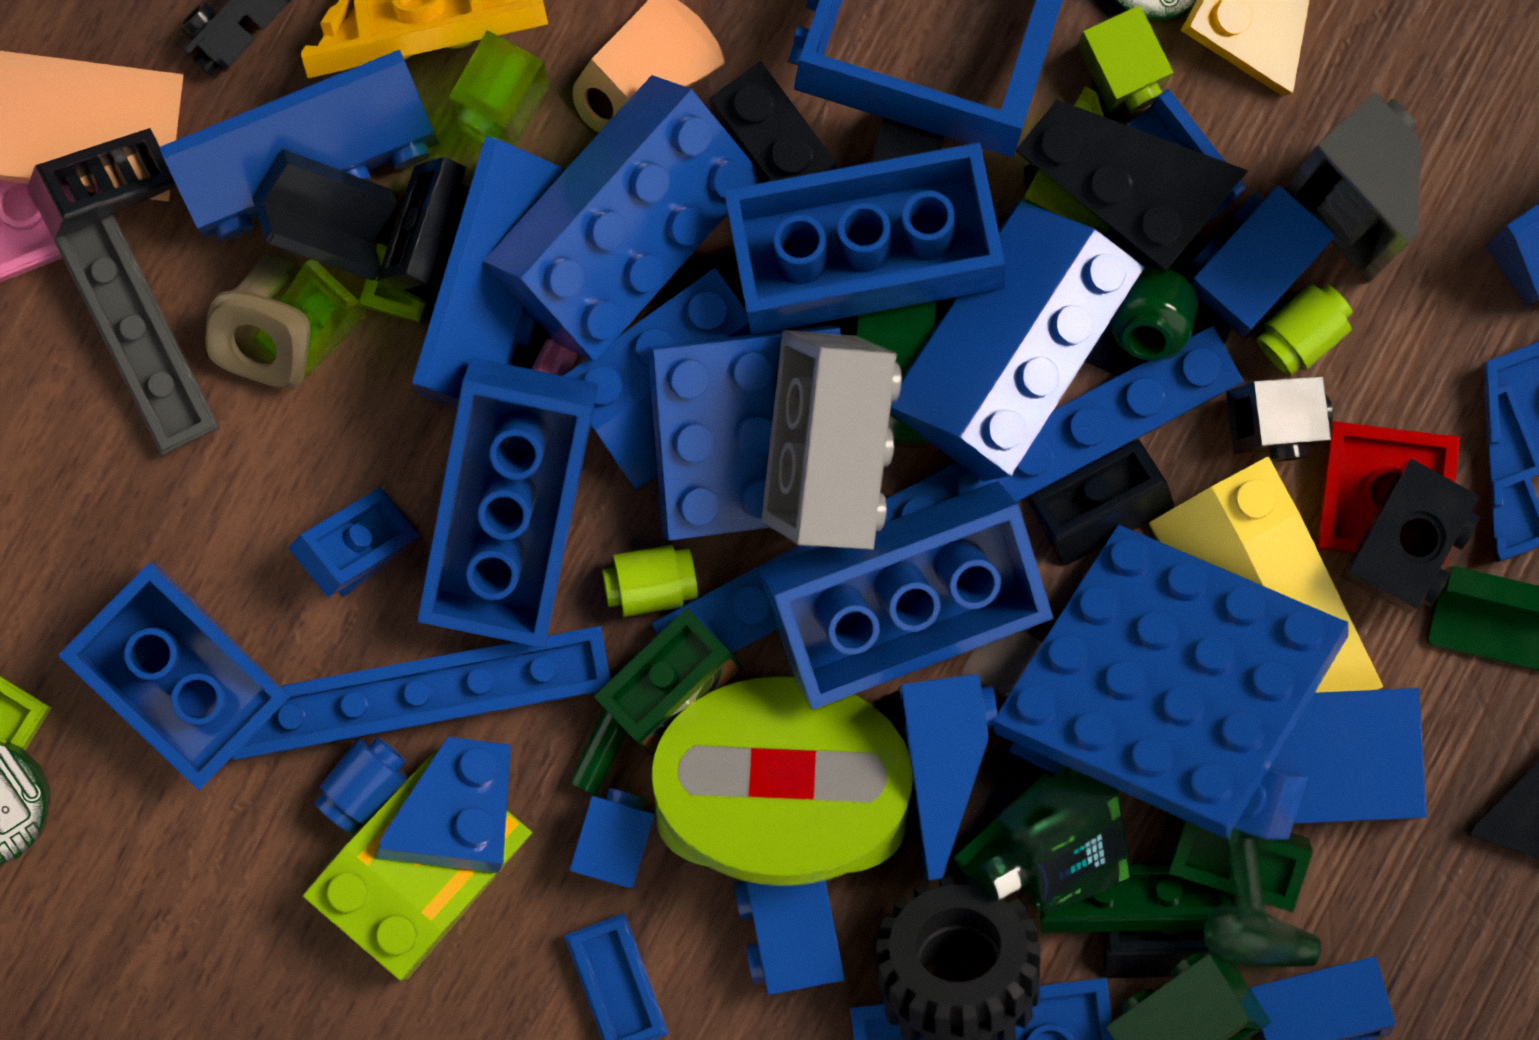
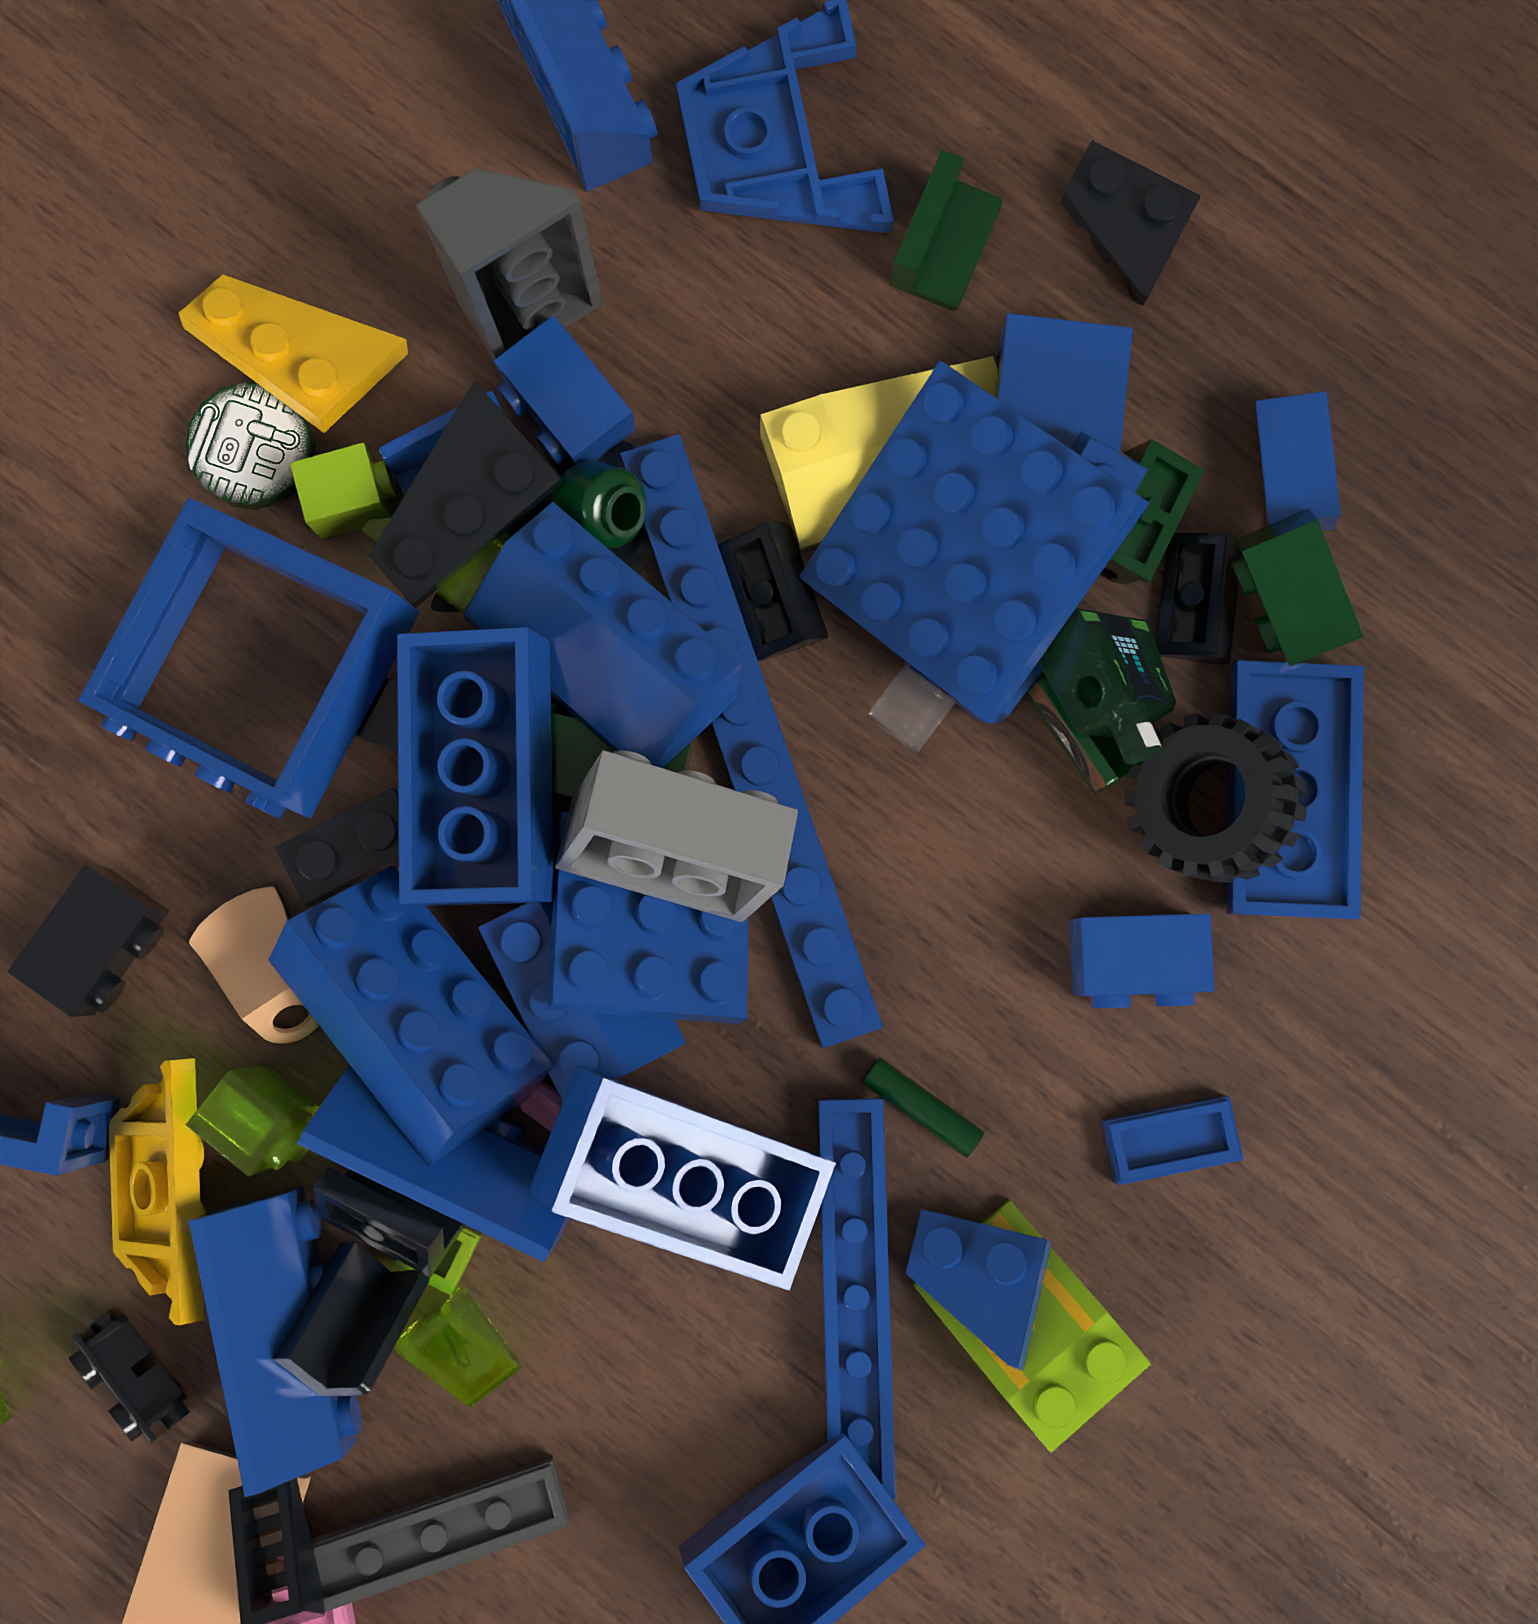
camera: 90 degrees left, 0 degrees up
(252, 305) = (434, 1409): dark tan piece -> none
(354, 543) = (695, 1341): blue slope -> none
(361, 784) = (939, 1368): blue brick -> none
(614, 838) = (1033, 1121): blue brick -> none
(650, 580) = (780, 1043): lime brick -> none
(667, 678) = (885, 1043): dark green panel -> none
(781, 788) = (1010, 944): lime piece -> none
(918, 598) = (839, 754): blue brick -> none
(945, 740) = (1004, 777): blue slope -> none
(1145, 903) = (1172, 606): dark green tile -> none
(1245, 930) = (1220, 514): clear green piece -> none
(1279, 417) = (721, 403): brick -> none
(1305, 329) = (639, 365): lime brick -> none
(1359, 472) = (809, 316): red plate -> none
(1380, 560) = (874, 326): black brick -> none

